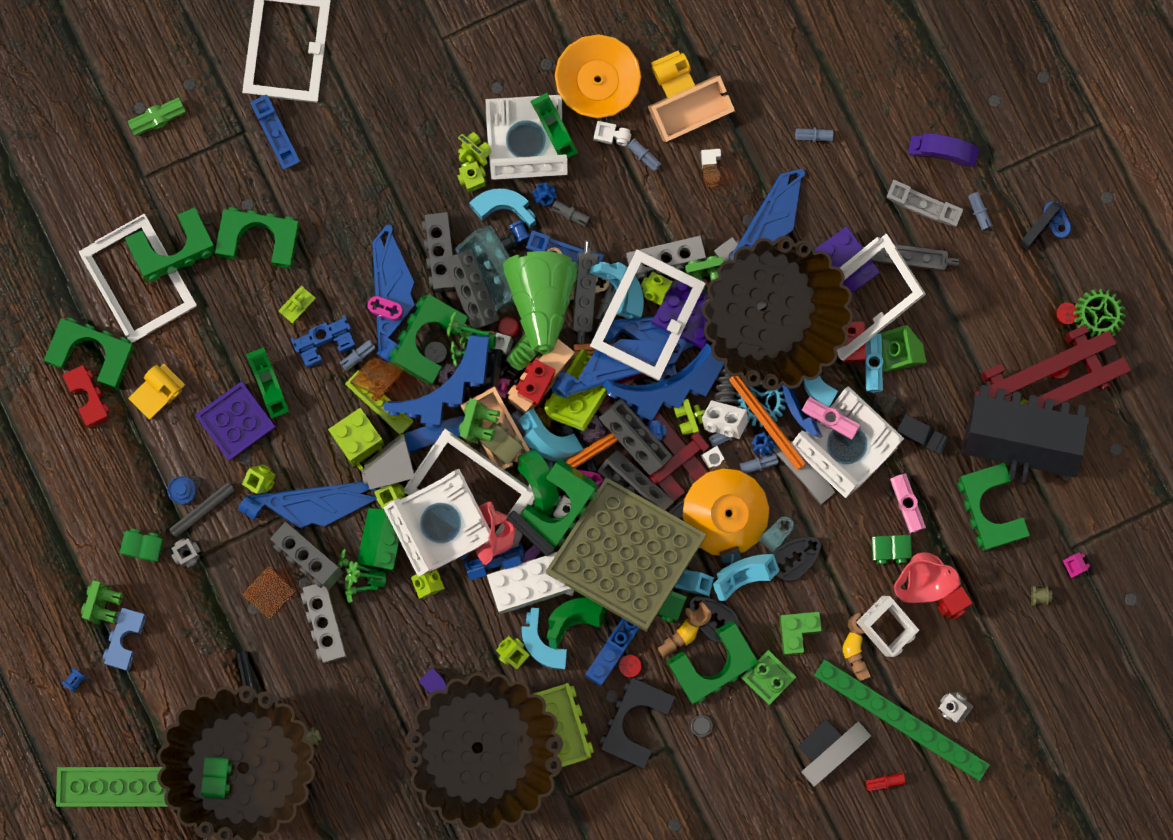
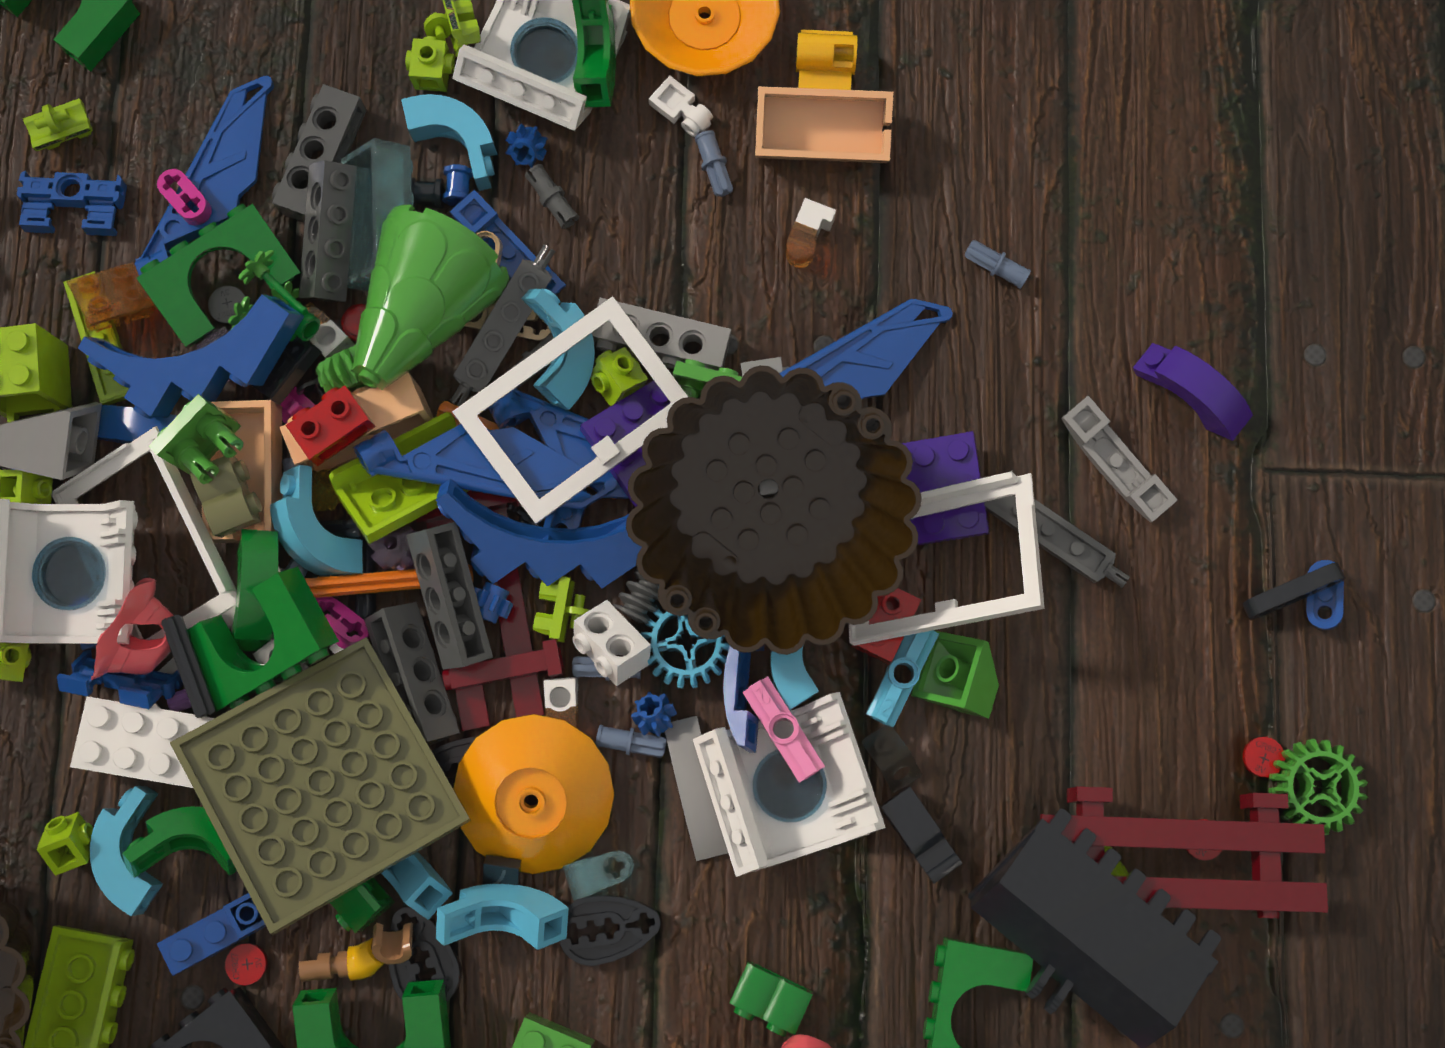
camera: 30 degrees right, 0 degrees up
(357, 355) = (105, 249): sand blue axle -> none
(767, 422) = (677, 693): orange axle -> none
(911, 515) = (835, 960): bright pink piece -> none
(980, 211) = (1203, 517): sand blue axle -> none

